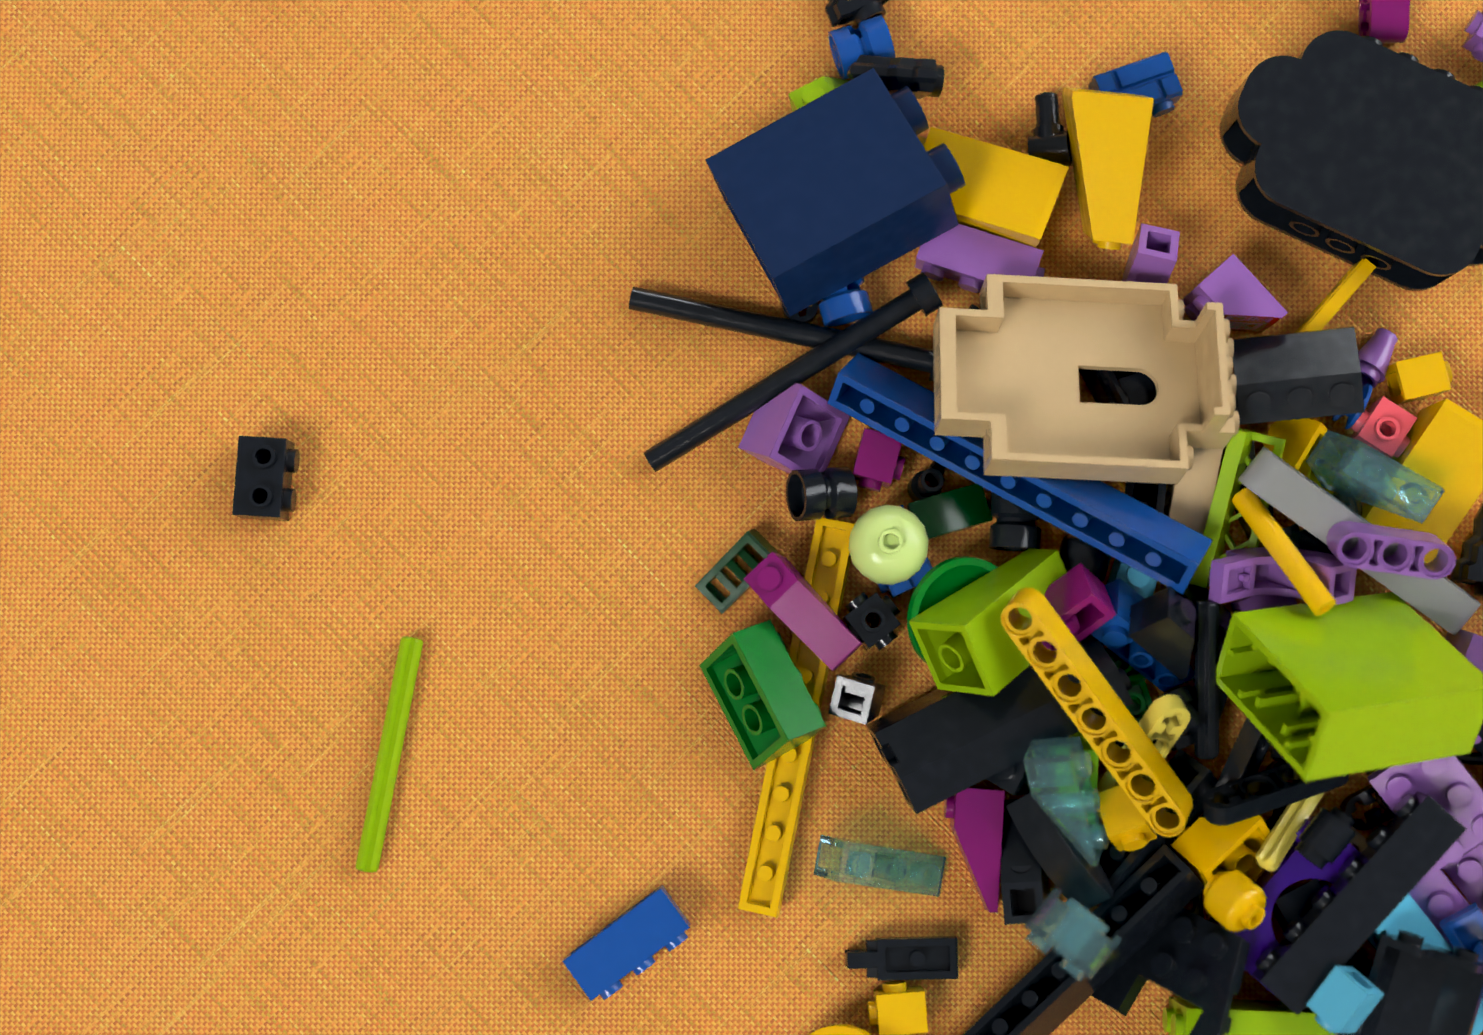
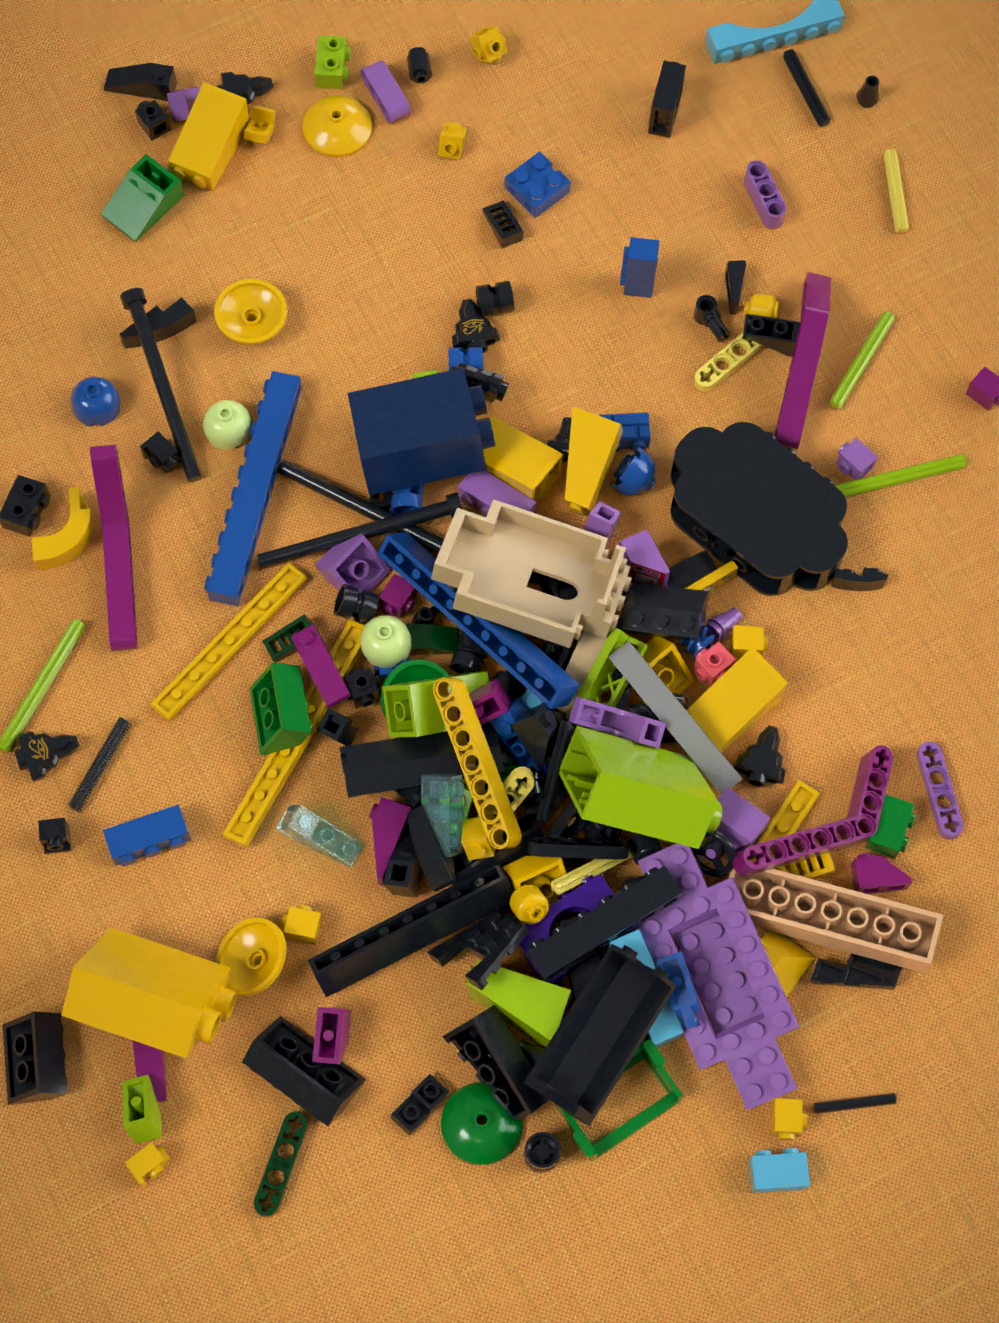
camera: 15 degrees right, 15 degrees down
(313, 274) = (95, 401): none -> blue cylinder
(321, 99) = (134, 300): none -> black piece
(356, 512) = (68, 543): none -> yellow arch
(368, 120) = (163, 323): none -> black slope
(428, 860) = (42, 752): none -> black rock
(431, 512) = (116, 547): none -> magenta beam
(444, 332) = (160, 453): none -> black brick
(492, 984) = (55, 835): none -> black brick
(502, 35) = (250, 300): none -> yellow dish
(519, 852) = (98, 765): none -> black axle
(528, 254) = (227, 424): none -> yellowish green cylinder
(604, 345) = (254, 489): none -> blue brick
(646, 602) = (228, 642): none -> yellow tile
(907, 958) = (318, 895): black hinge -> none
(1072, 935) = (419, 890): clear light blue brick -> none
(1174, 155) = (635, 473): none -> blue cylinder
(1283, 552) = (622, 704): yellow piece -> none
(1305, 289) = (691, 570): none -> black slope
(1326, 837) = (596, 879): black brick -> none
(1344, 1000) = (575, 975): medium azure brick -> none
(1372, 477) = (692, 681): clear light blue slope -> none
(1407, 559) = (673, 717): medium lavender beam -> none

